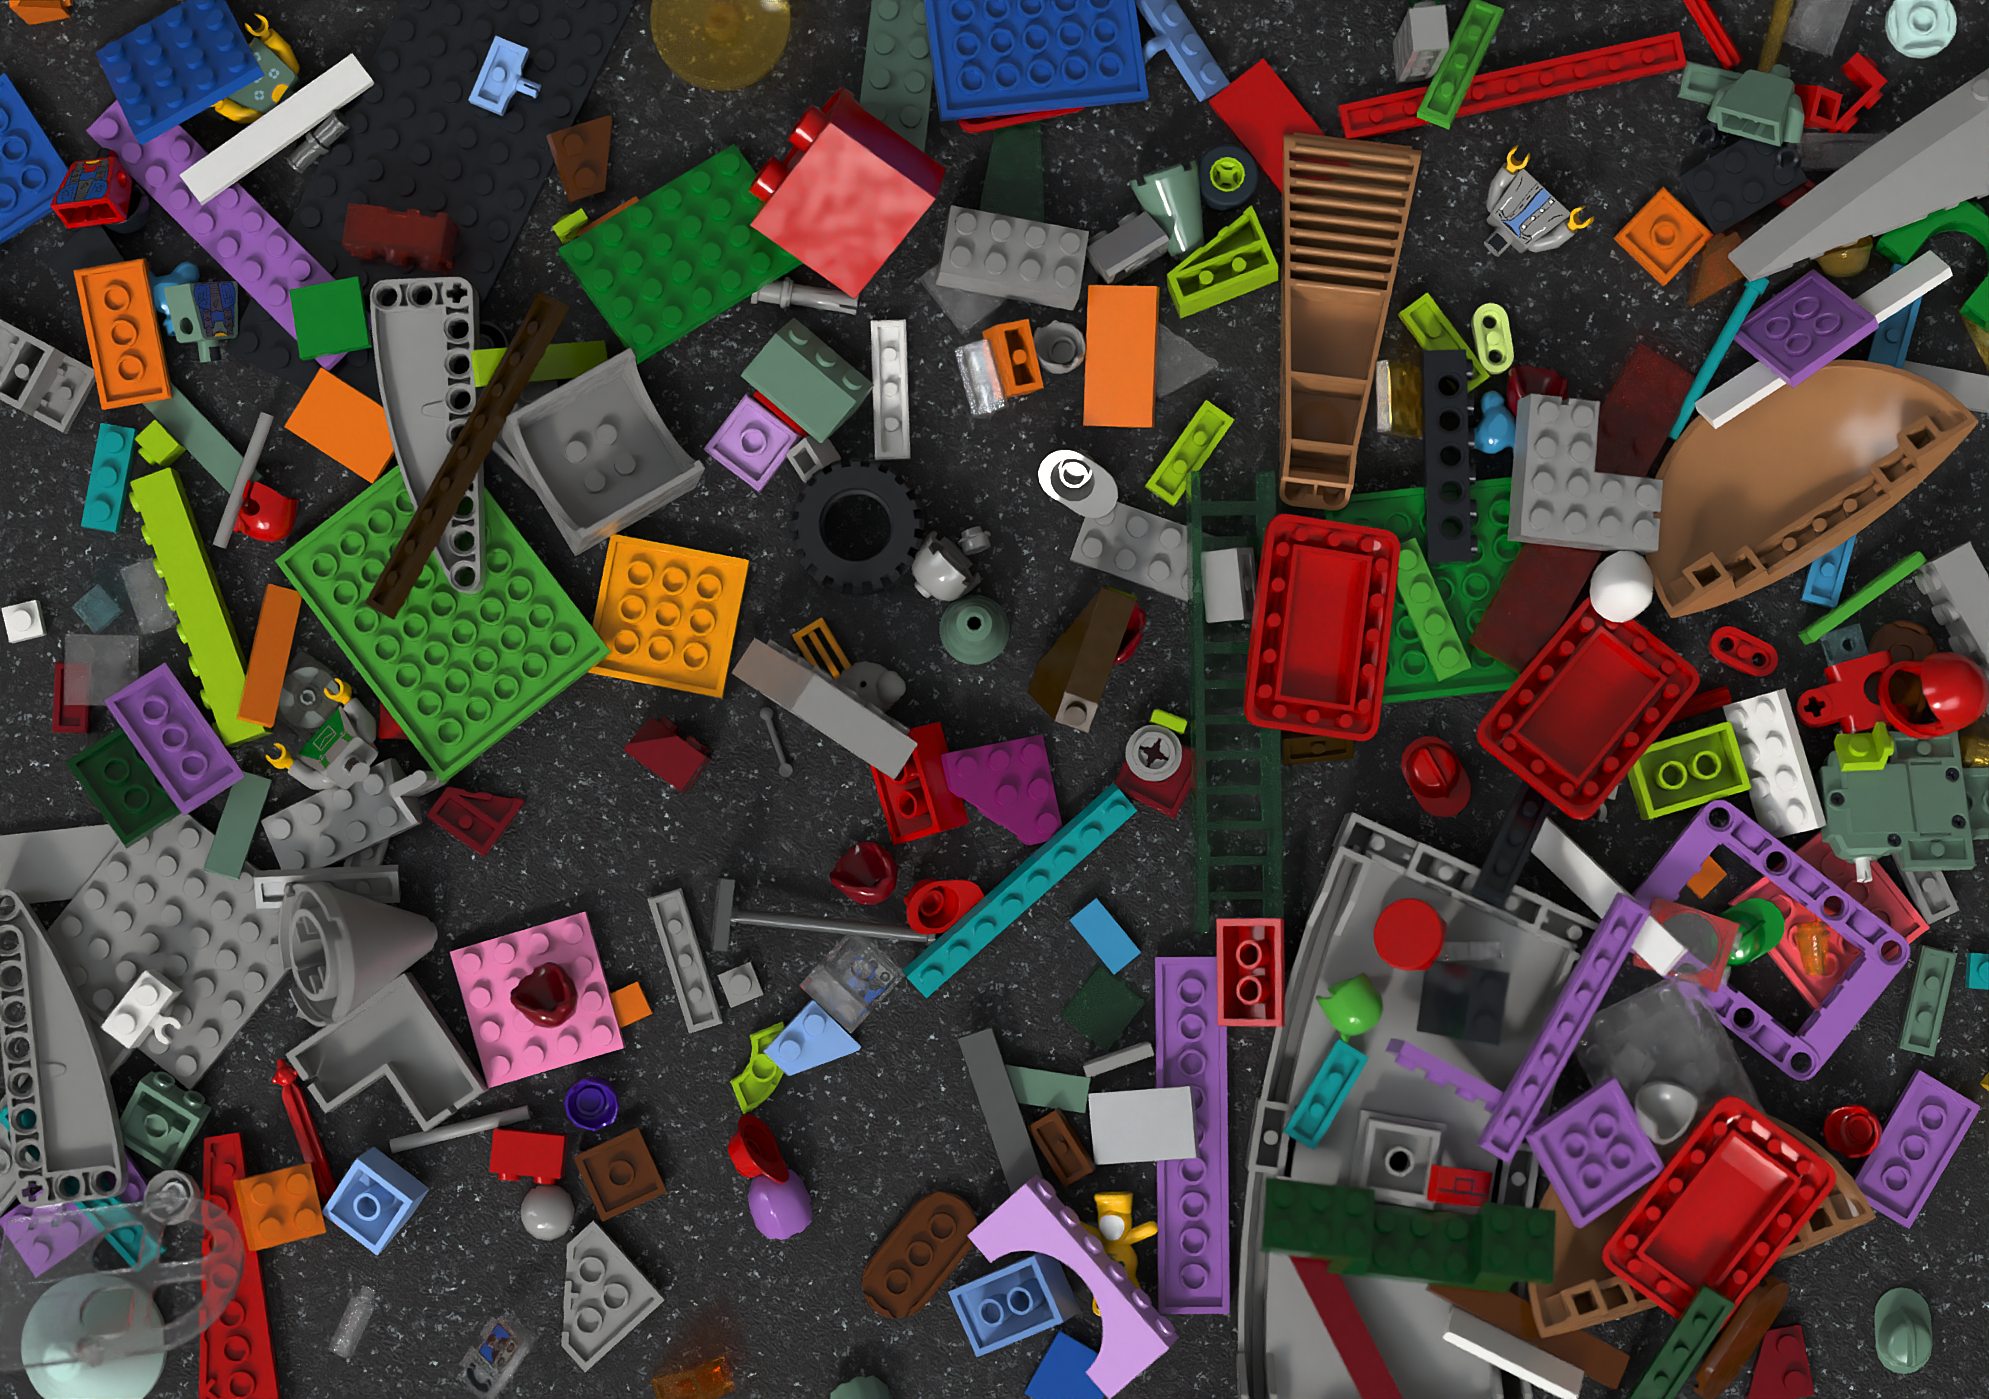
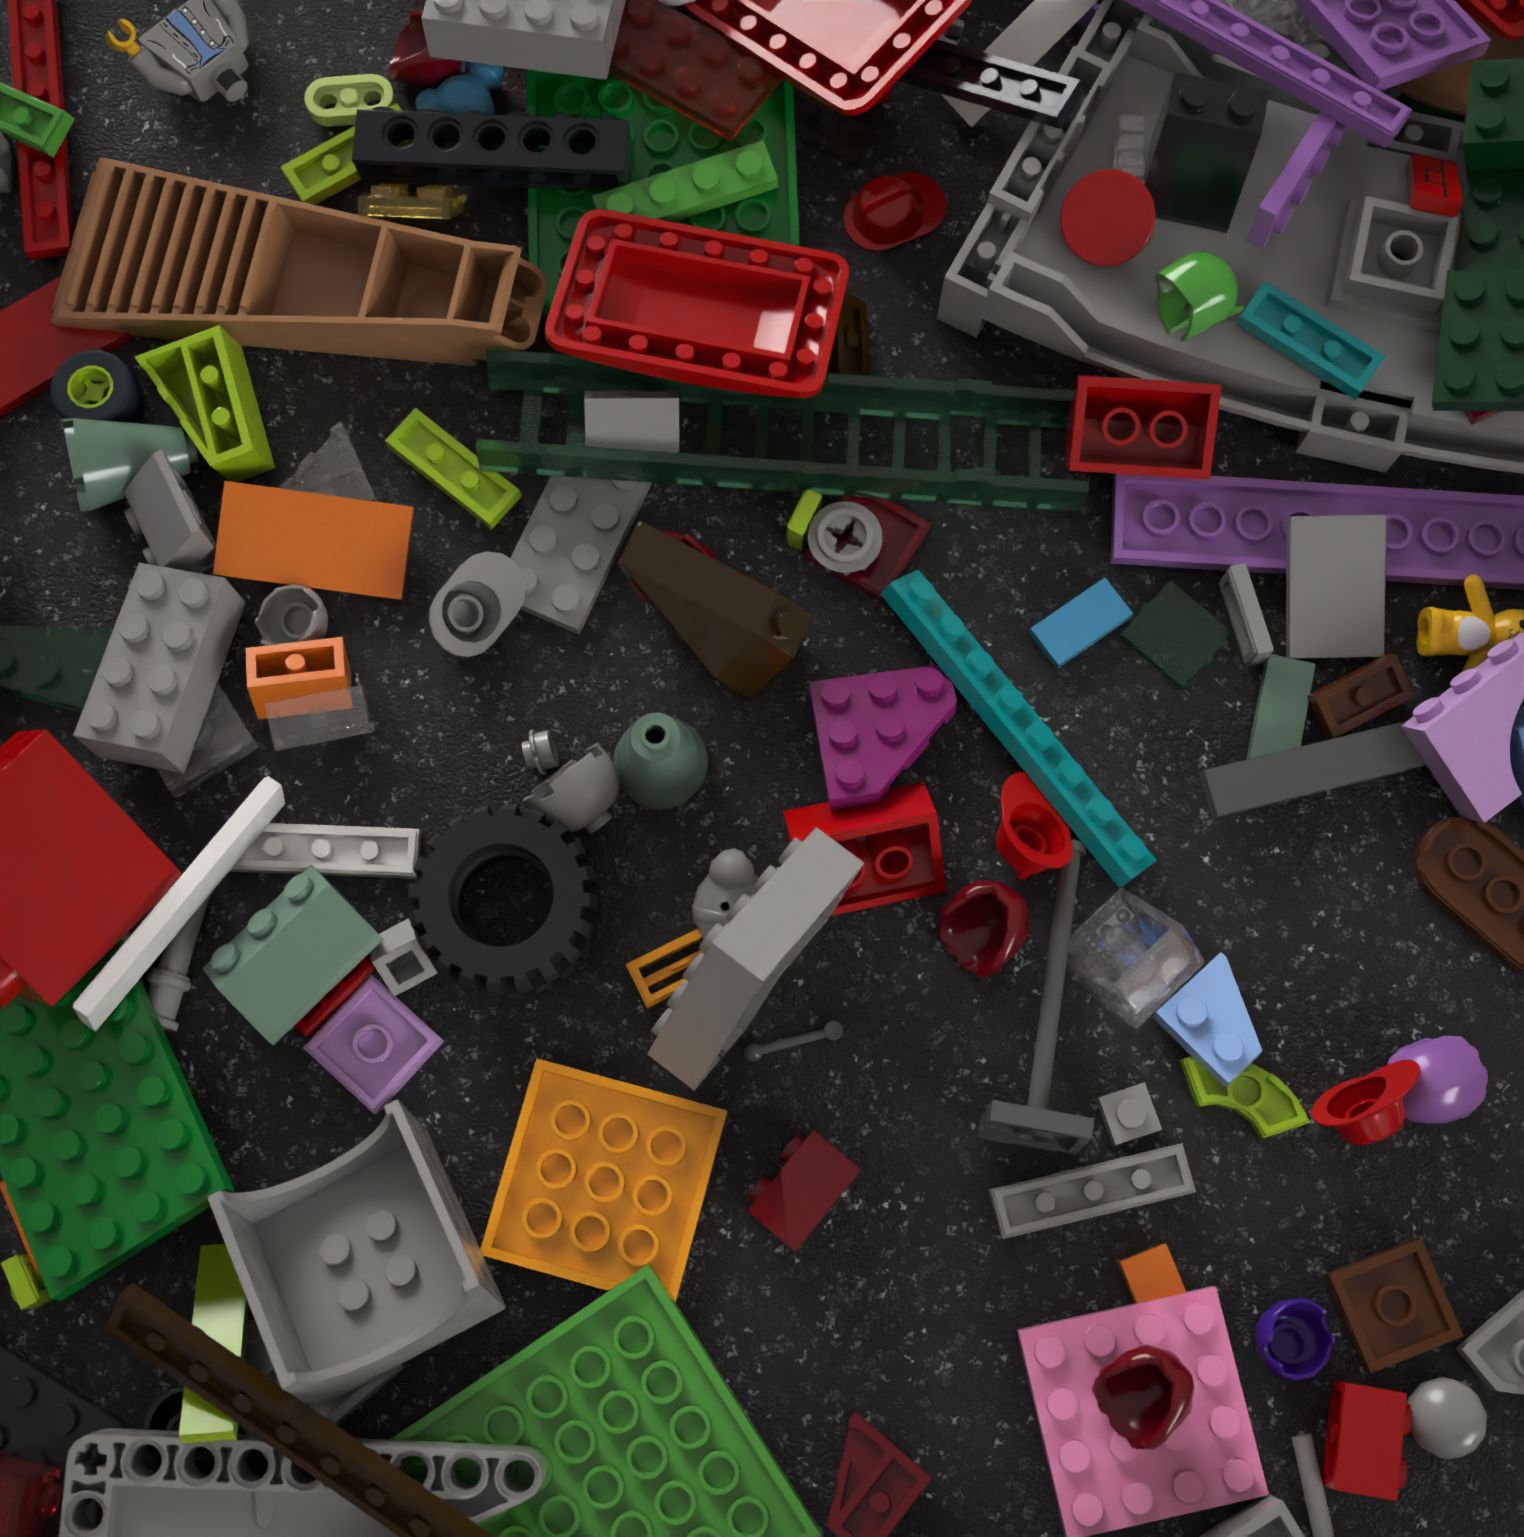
camera: 85 degrees left, 10 degrees down
(837, 299) = (179, 904): none -> white tile

